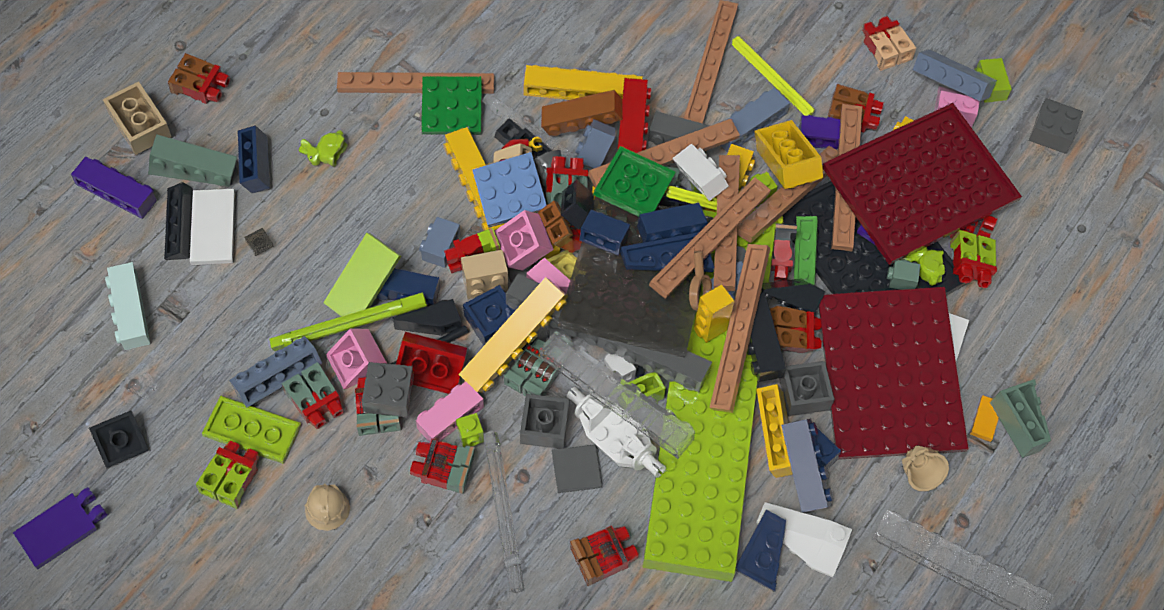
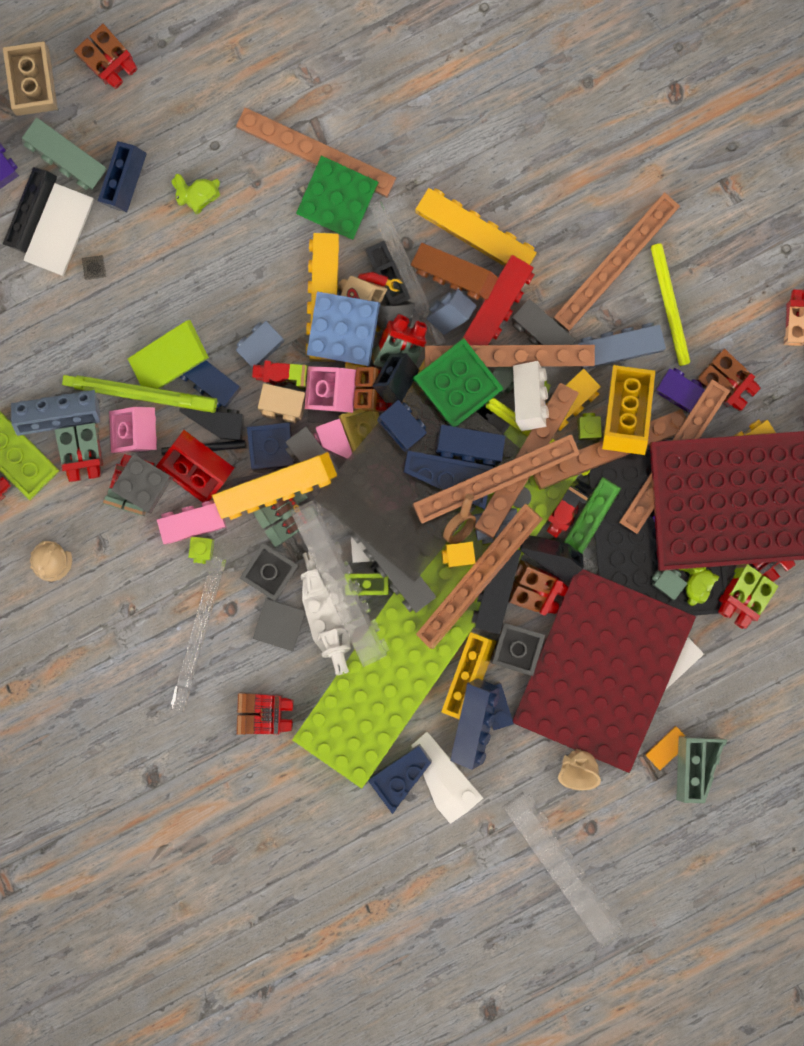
camera: 30 degrees right, 25 degrees up
(444, 465) = (158, 567): hips -> none

